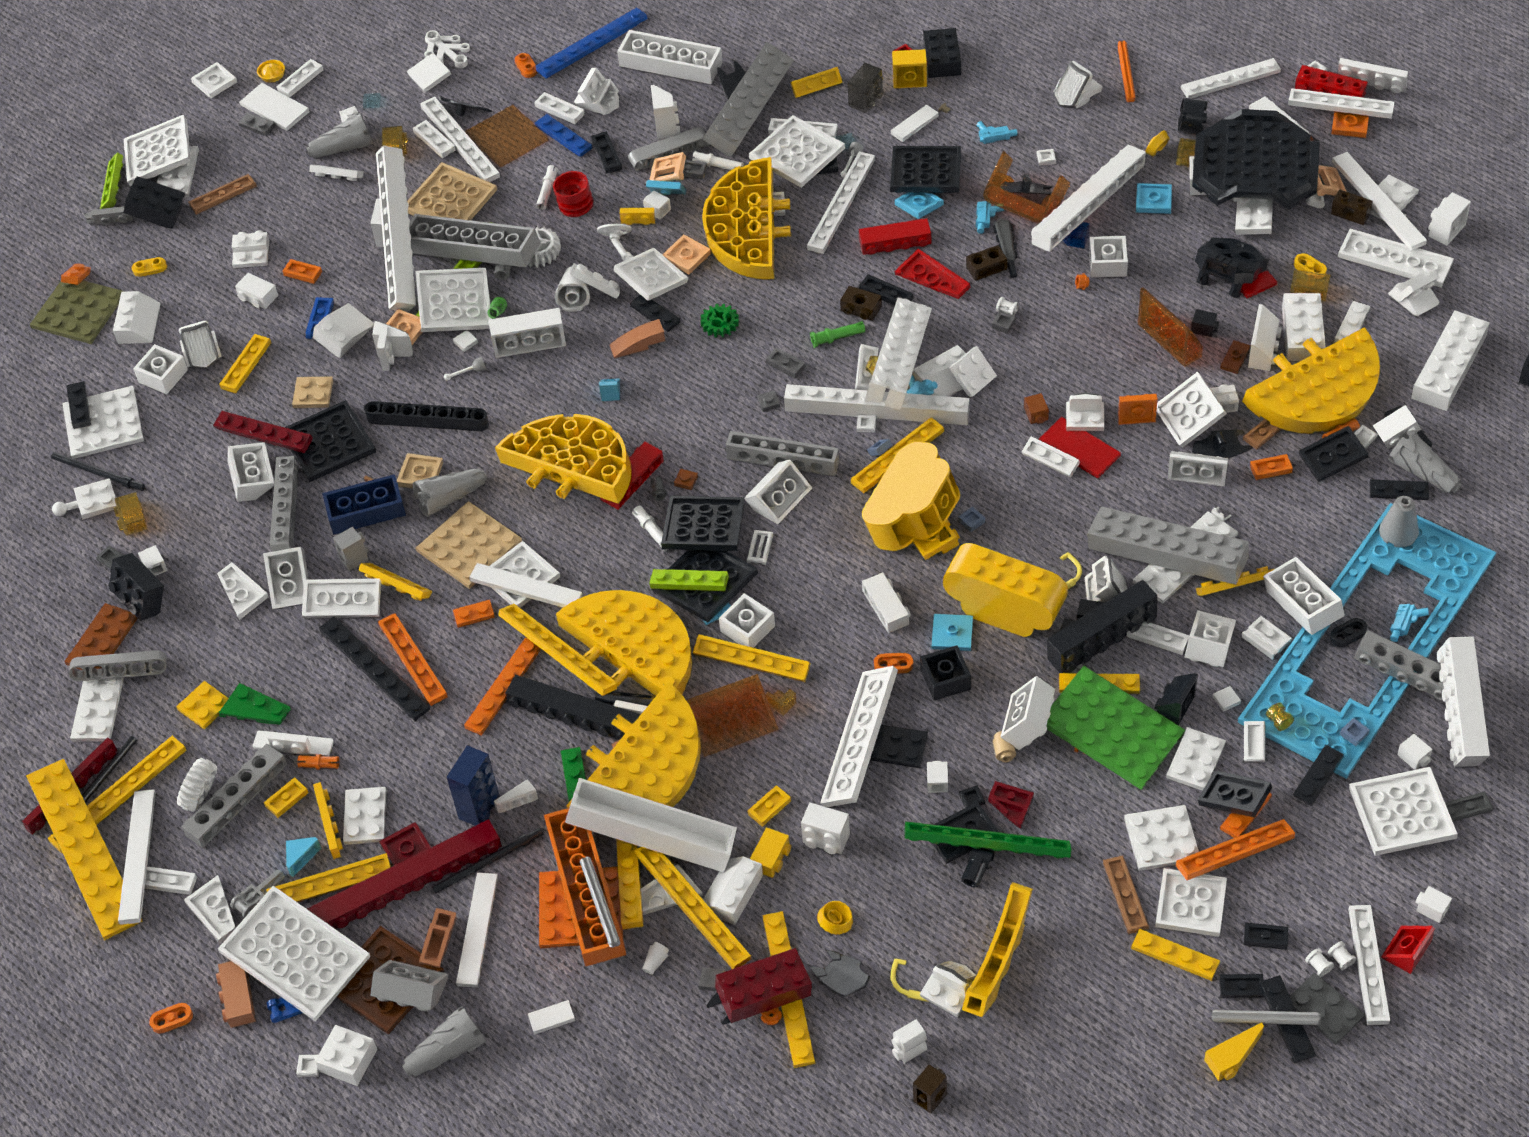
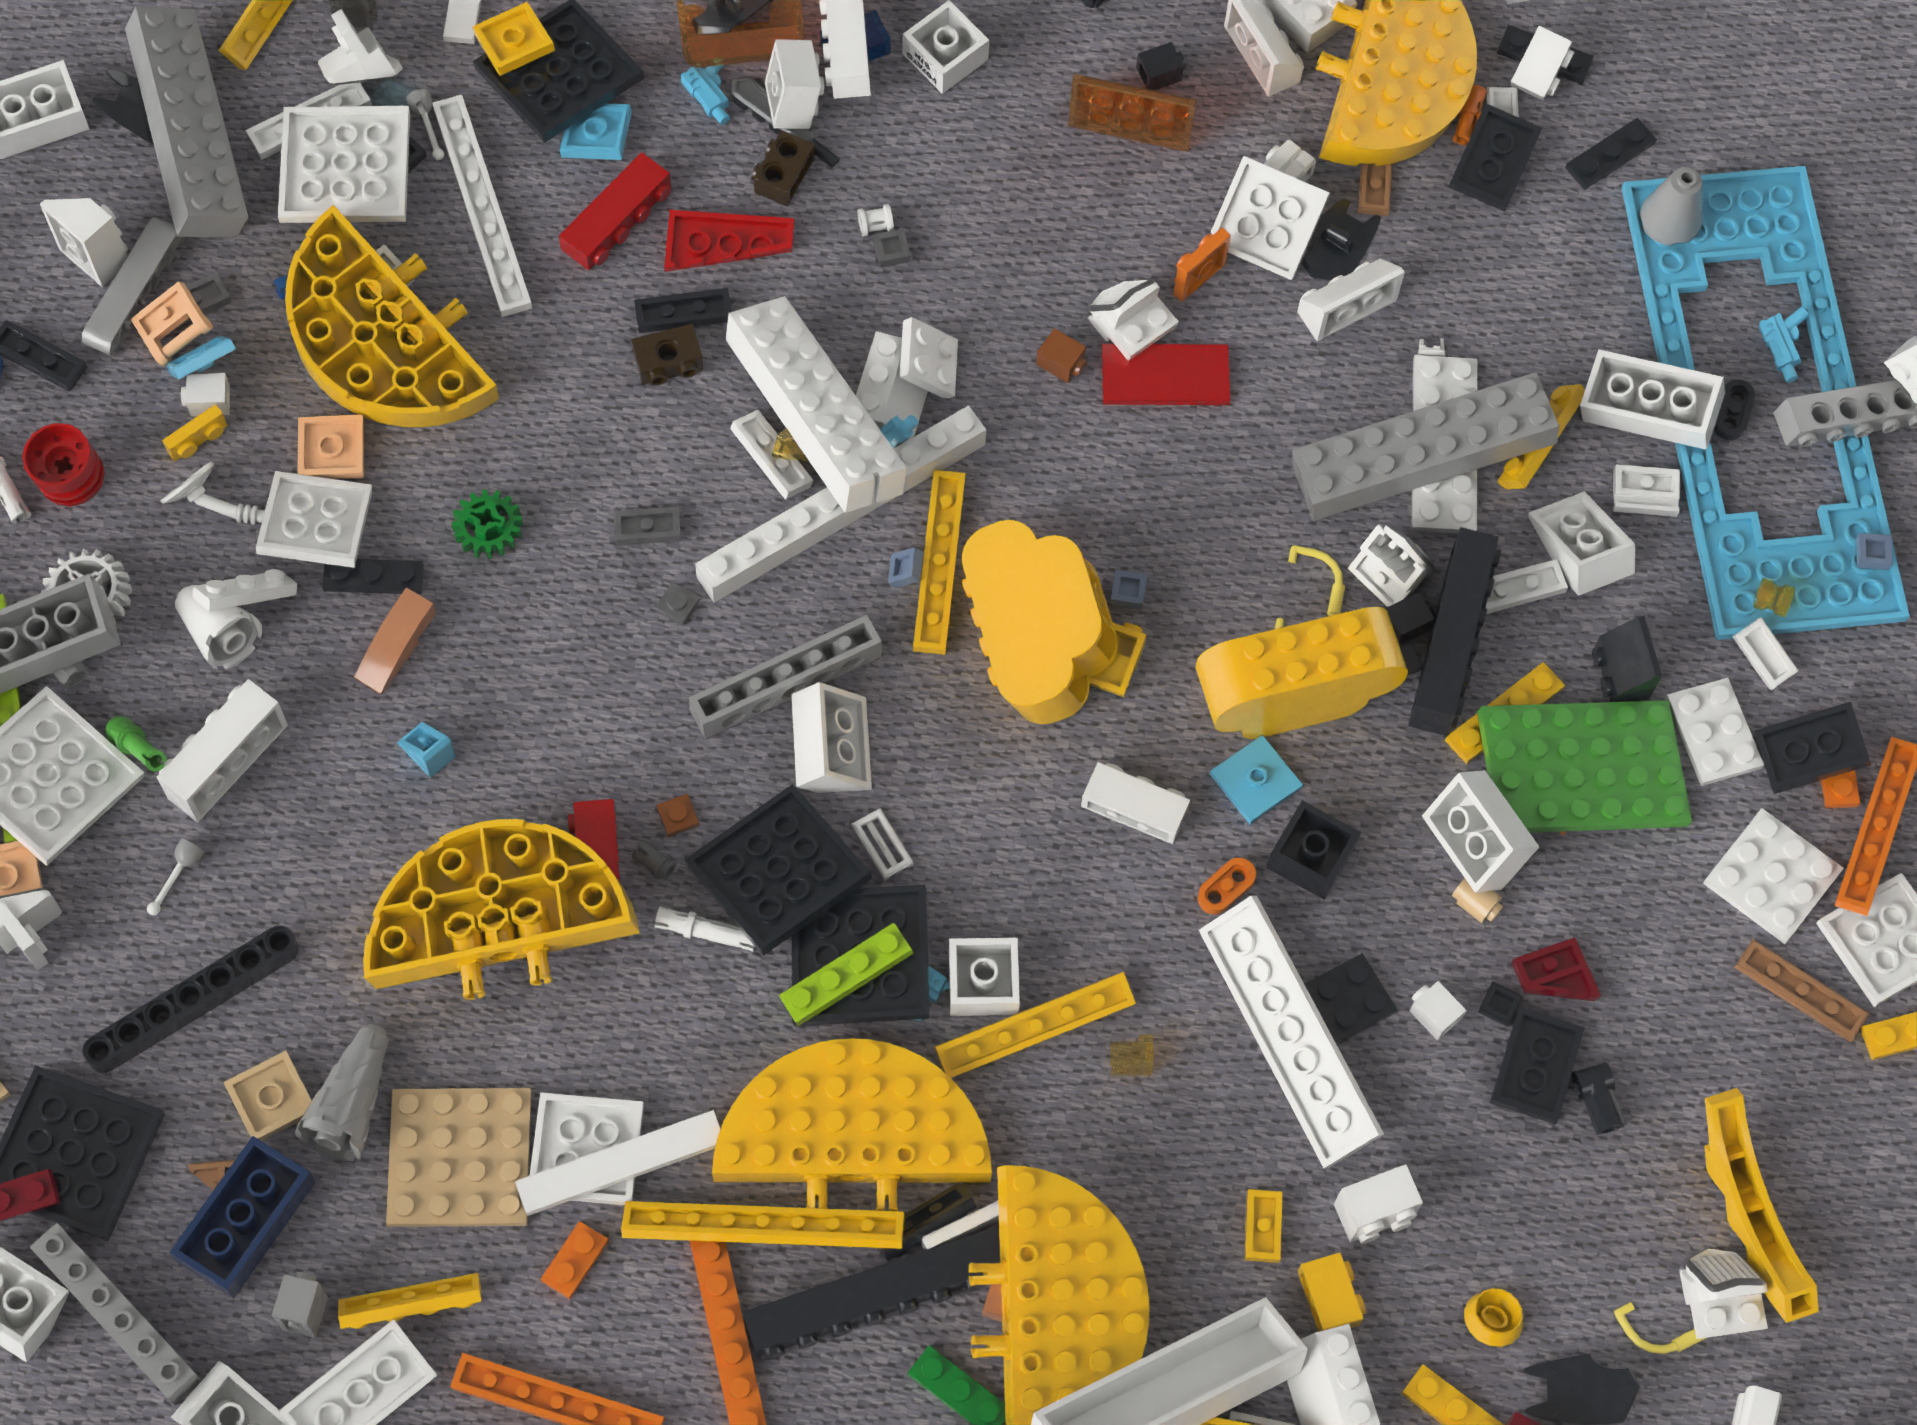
camera: 50 degrees left, 15 degrees up
(465, 340) = (123, 828): white tile -> none
(712, 160) = (229, 258): white pin -> none
(732, 715) = (1090, 1126): clear orange slope -> none
(829, 335) = (669, 437): bright green pin -> none
(845, 115) = (358, 57): none -> white piece
(866, 423) = (848, 541): white tile -> none
(916, 144) = (513, 38): none -> yellow plate
(987, 839) = (1587, 1054): green plate -> none
(1019, 229) = (793, 84): none -> white brick
(1050, 457) = (1145, 417): white plate -> none
(1082, 281) = (941, 107): orange plate -> none
(1226, 698) = (1674, 616): white tile -> none
(1235, 357) = (1240, 92): reddish brown plate -> none
(1271, 467) = (1433, 231): orange plate -> none
(1318, 775) = (1878, 643): black plate -> none
(1420, 460) = (1607, 93): light grey cone -> none

